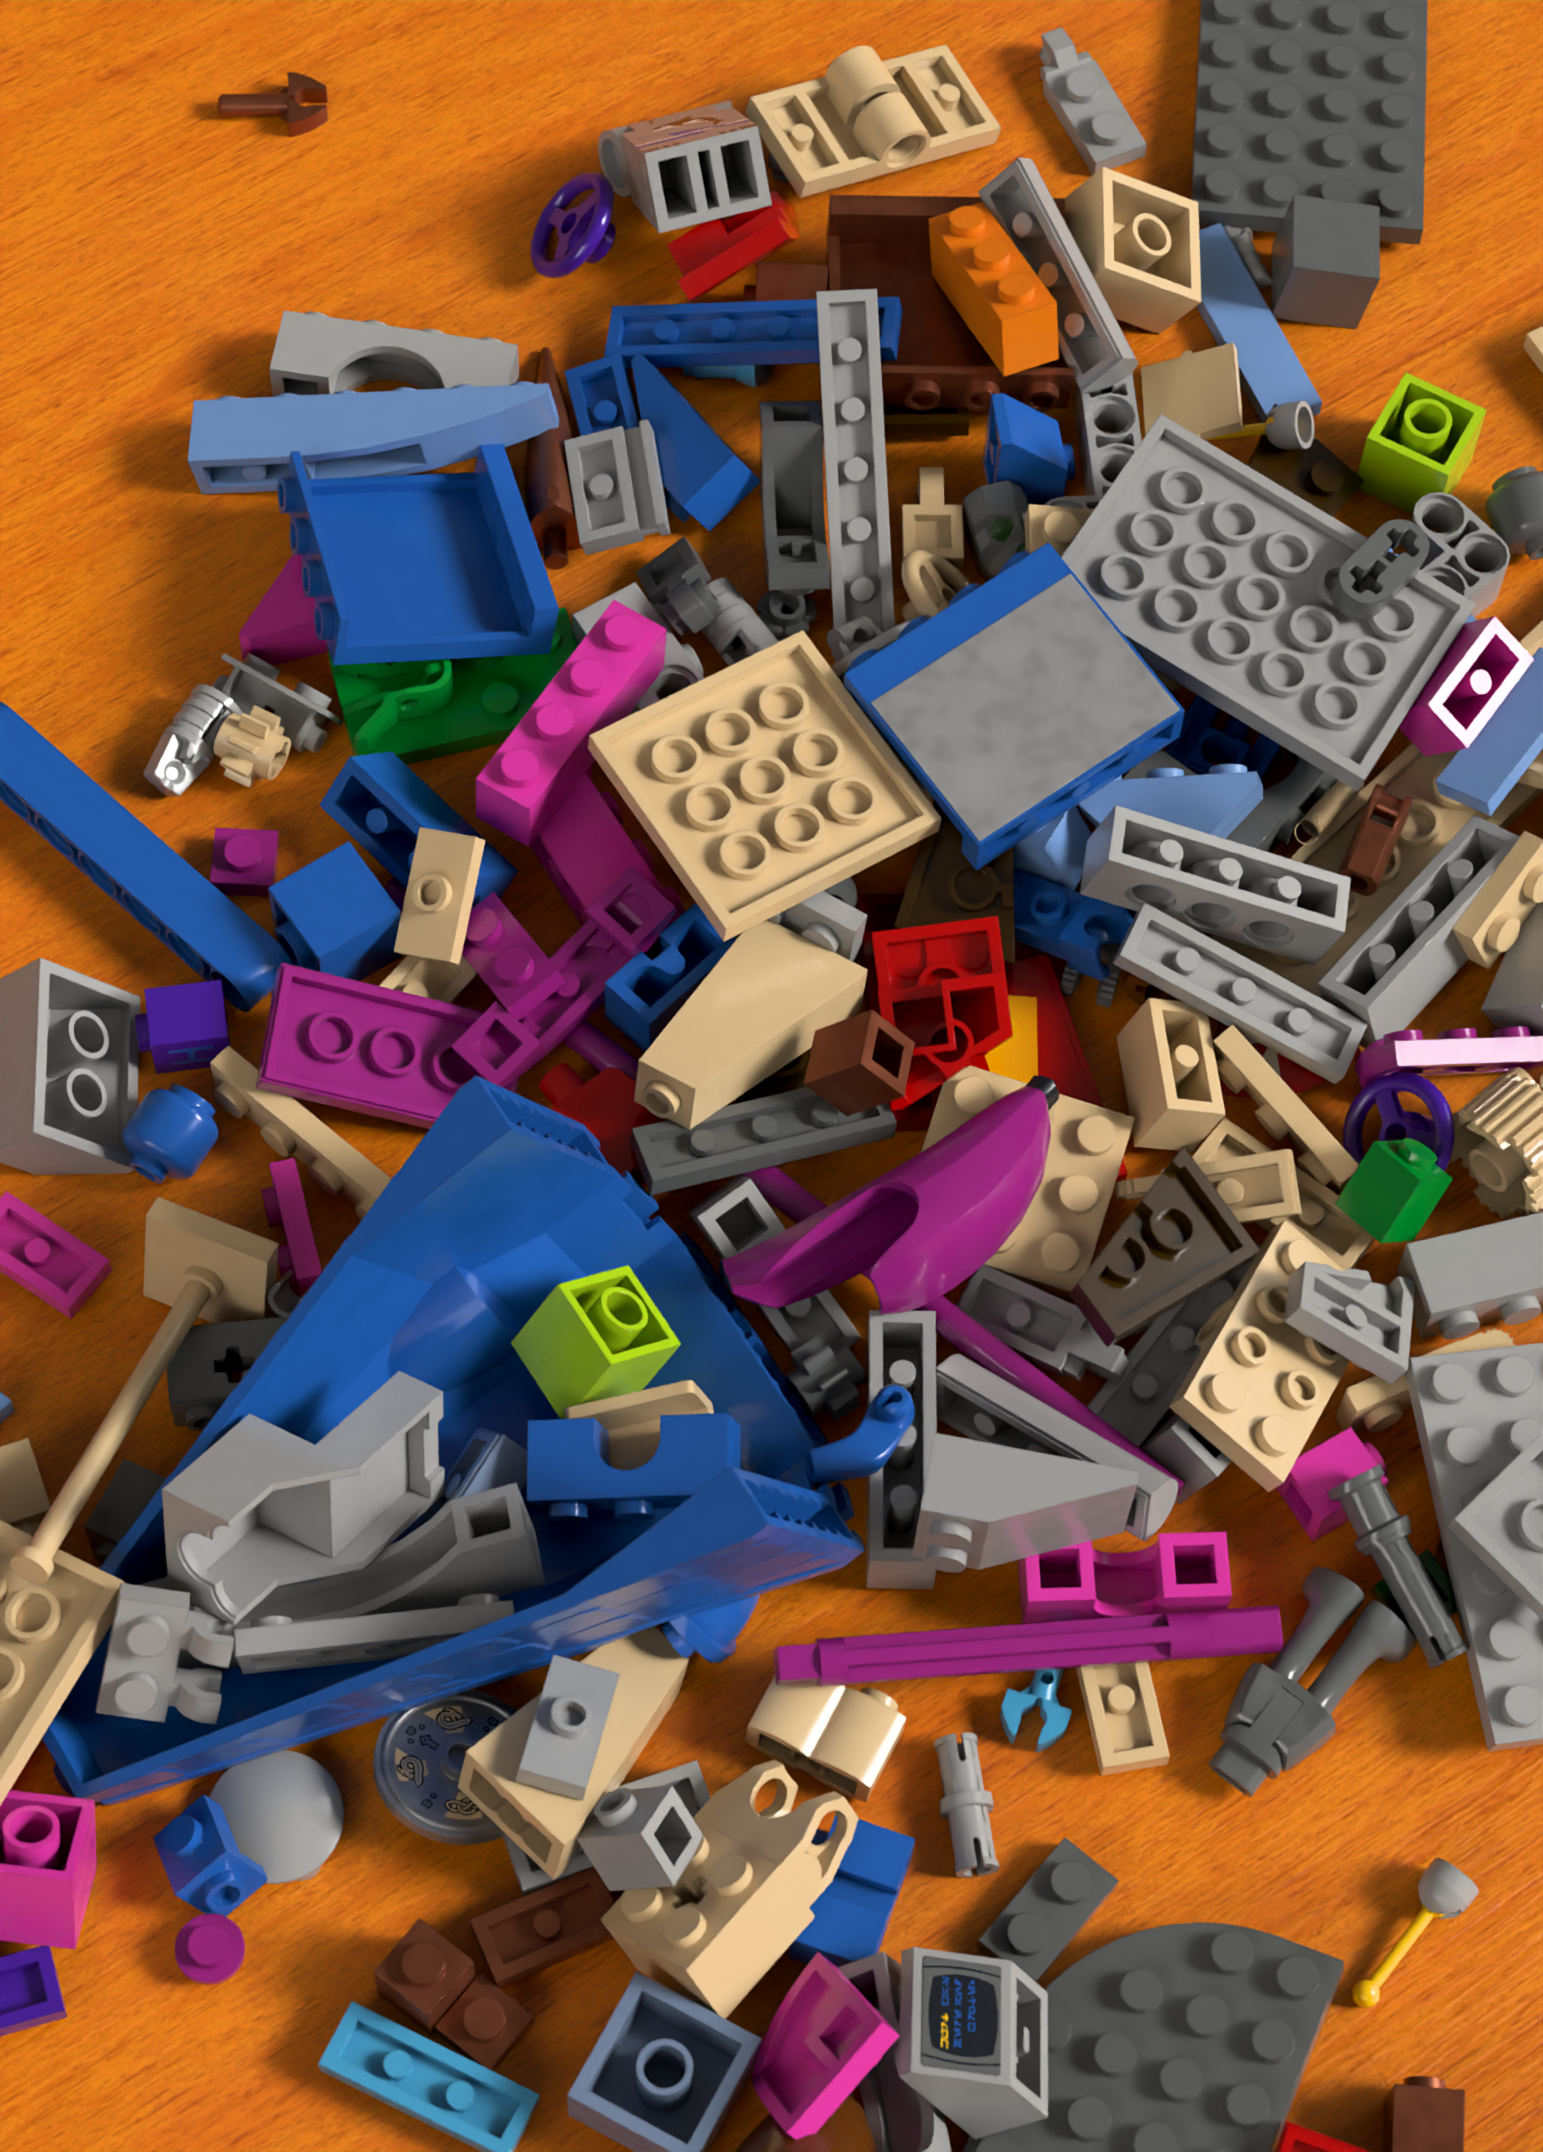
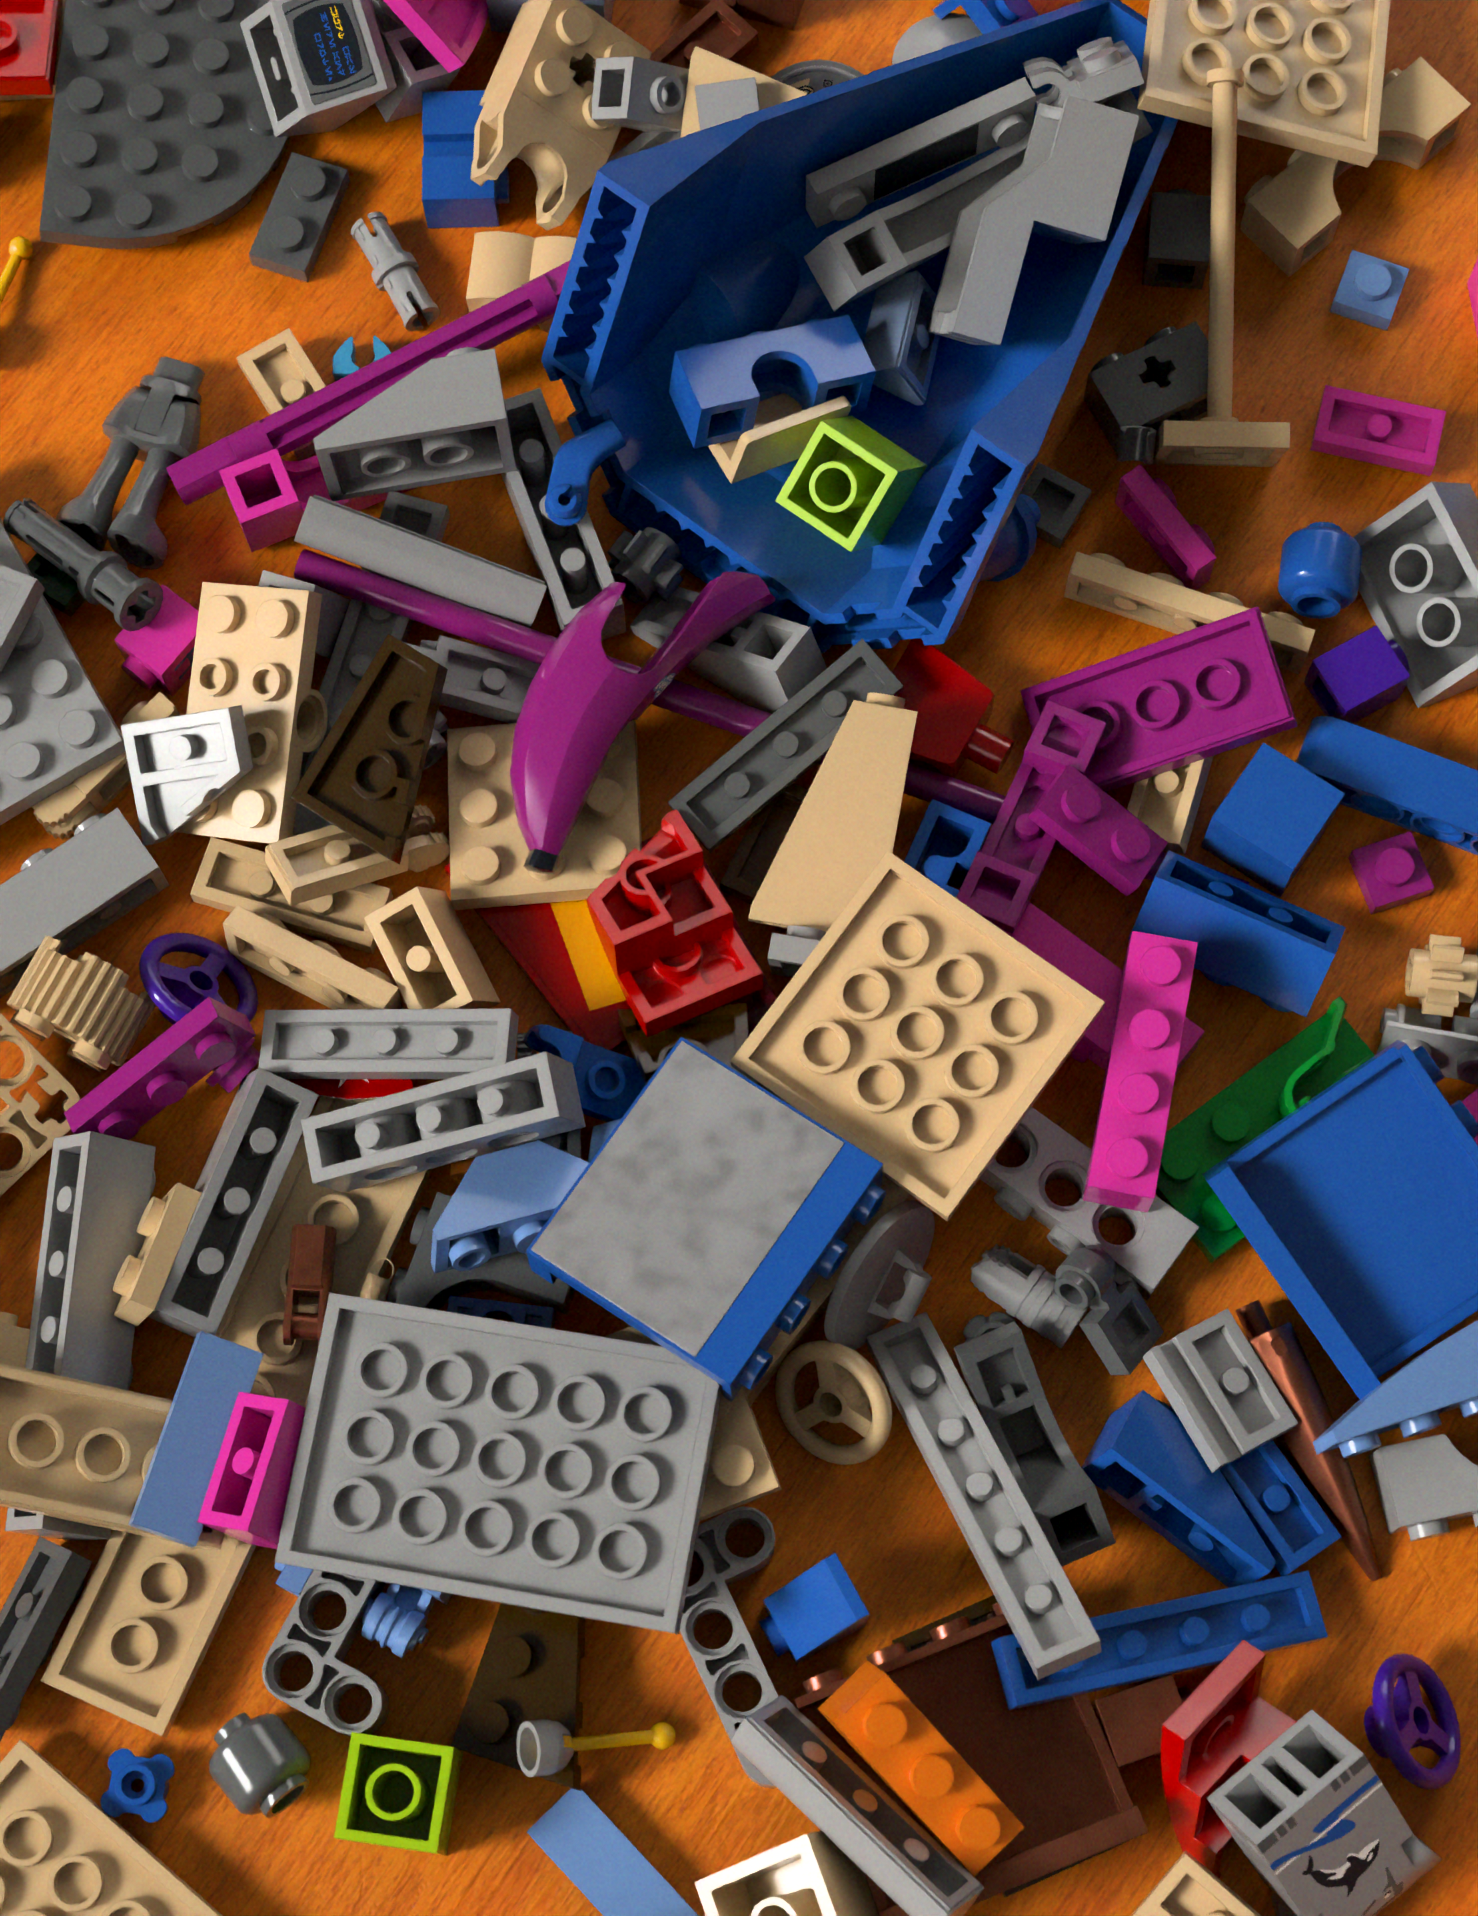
camera: 165 degrees right, 10 degrees up
(439, 895) = (1182, 846): tan plate -> none
(859, 1063) = (717, 808): copper brick -> none
(931, 523) = (883, 1498): tan plate -> none
(994, 525) = (808, 1518): dark grey rock -> none
(1195, 391) = (667, 1773): tan piece -> none
(1389, 577) = (367, 1534): dark grey beam -> none
(1394, 1190) = (184, 908): green brick -> none

